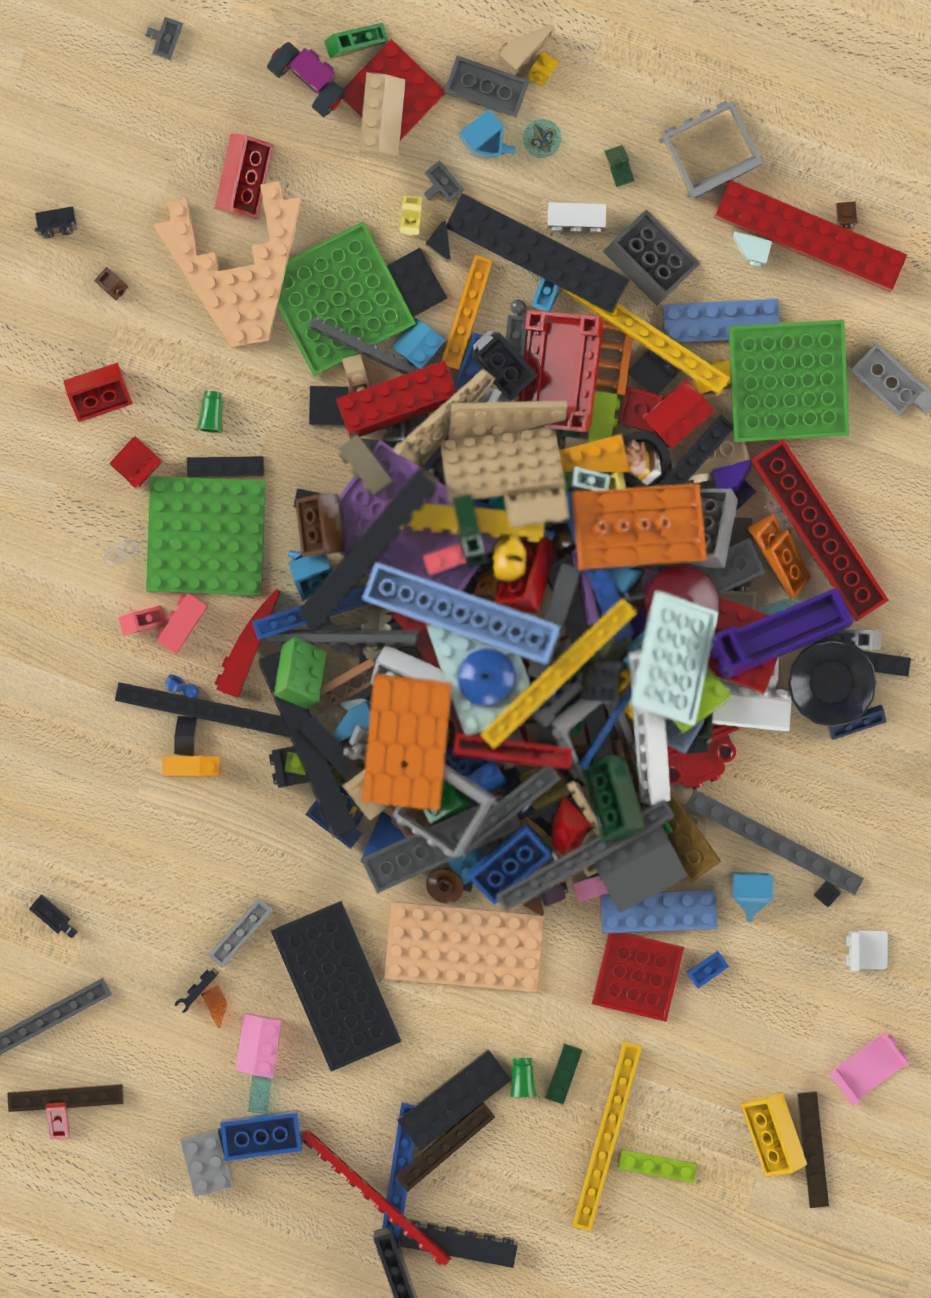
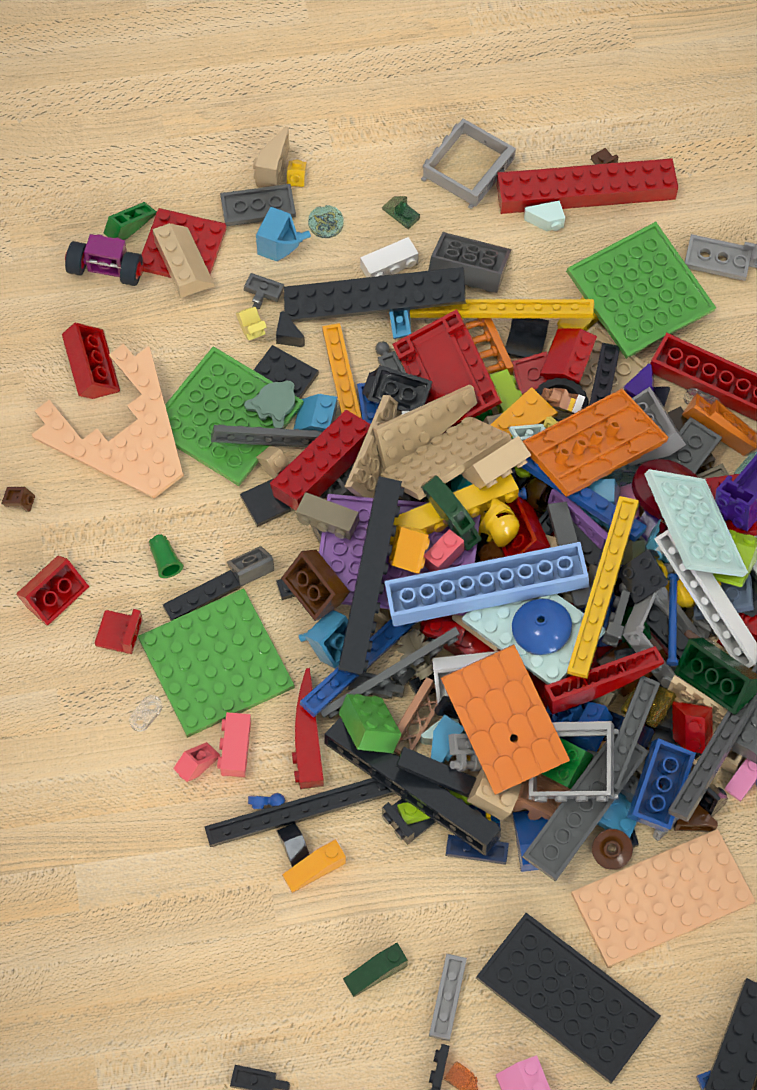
camera: 30 degrees left, 25 degrees down
(194, 879) = (376, 969): none -> dark green slope
(283, 460) = (251, 565): none -> dark grey slope
(387, 311) = (273, 401): none -> sand green tile
(413, 543) = (409, 548): none -> light orange slope
(711, 319) = (551, 281): medium blue plate -> none

